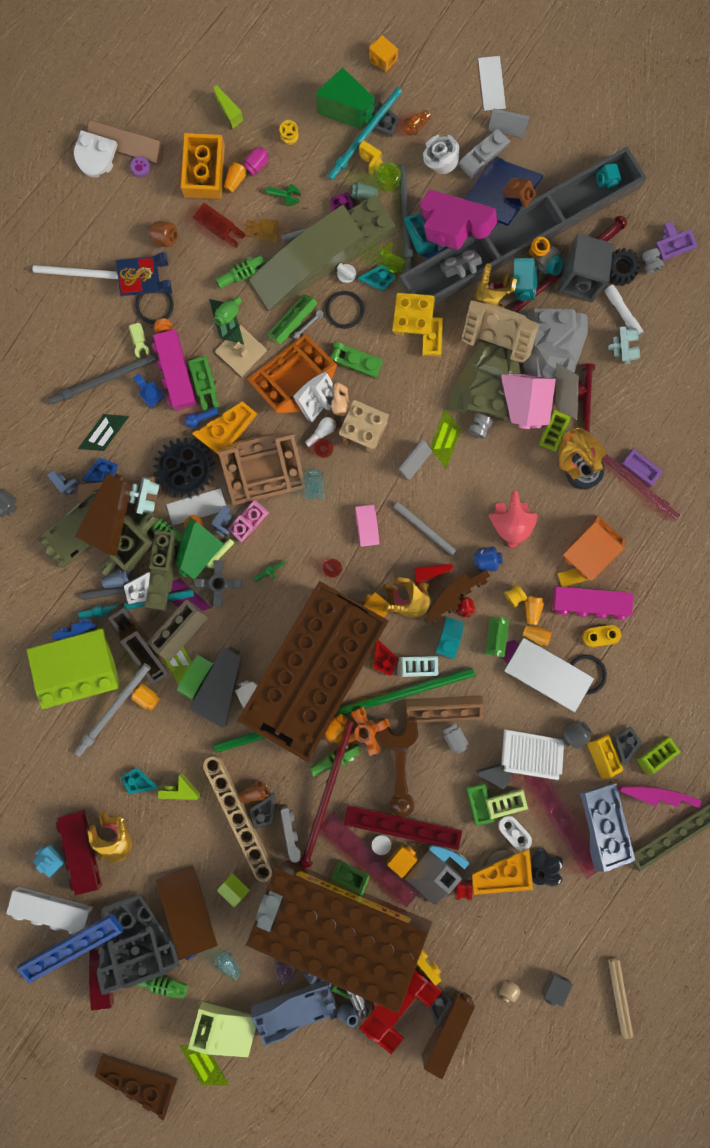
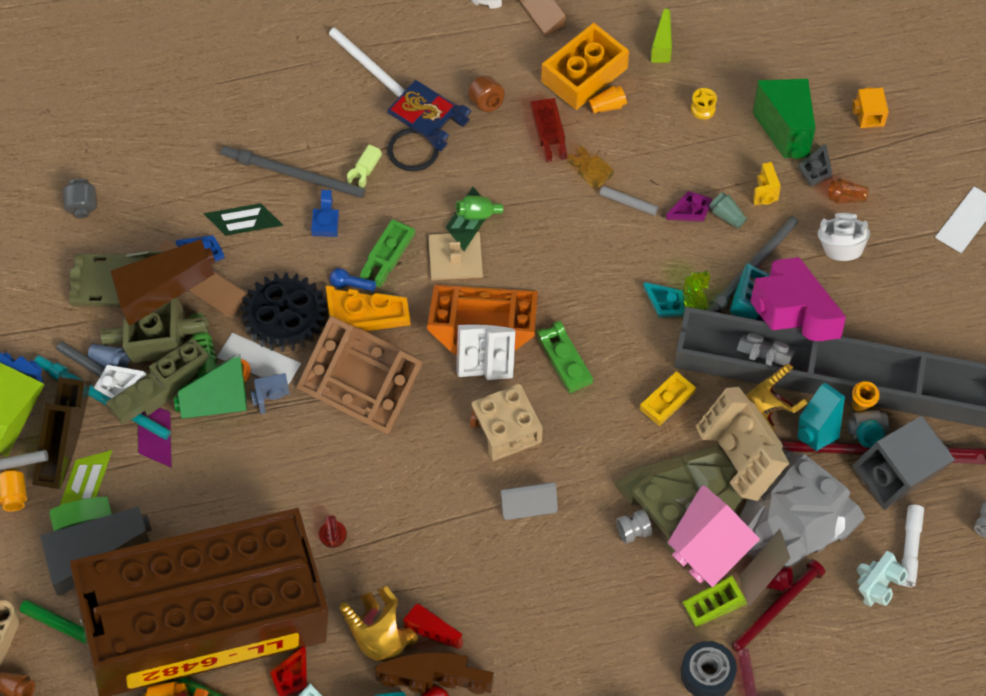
camera: 45 degrees right, 25 degrees down
(60, 482) = (154, 229): sand blue bracket -> none
(140, 167) = (525, 25): medium lavender tile -> none
(142, 504) = (226, 291): light aqua hips -> none
(162, 325) = (400, 172): orange plate -> none
(175, 370) = (369, 218): dark pink brick -> none
(177, 630) = (113, 452): dark tan brick -> none
(218, 593) = (200, 436): dark grey pin -> none
(227, 544) = (220, 421): yellowish green bar -> none
(240, 271) = (529, 185): bright green hinge -> none
(248, 521) = (295, 416): bright pink slope -> none
(255, 160) = (644, 102): dark pink brick -> none
(269, 571) = (264, 481): green piece -> none
(285, 194) = (645, 154): green bar -> none
(292, 319) = (536, 266): bright green plate -> none
(314, 484) = (397, 435): clear light blue bracket -> none
(319, 314) = (569, 286): light grey hinge -> none
(320, 250) = (631, 226): olive slope -> none
(323, 442) = (444, 404): clear red plate -> none
(324, 428) = (464, 393): white piece -> none
(340, 403) = (503, 376): light nougat piece -> none
(341, 325) = (595, 322): black piece -> none
(342, 161) = (732, 169): teal bar -> none
(346, 273) = (635, 268): white plate -> none
(367, 525) = (412, 521): bright pink slope -> none
(376, 604) = (336, 621): light orange brick -> none
(388, 176) = (767, 215): clear neon green head -> none
(413, 314) = (663, 353): yellow bracket -> none
(424, 528) = (471, 581): light grey bar -> none
(445, 438) = (585, 511): clear neon green sticker -> none
(483, 153) = (874, 271): light grey plate -> none
(488, 559) = (508, 667): blue head -> none
(492, 182) = (882, 318): clear blue piece -> none
(508, 123) = (949, 265): light grey slope -> none
(516, 523) = (571, 651): coral piece -> none
(520, 189) = (896, 327): dark orange bracket -> none
(580, 442) = (724, 625): pearl gold piece -> none
(632, 262) = (943, 511): black tyre -> none

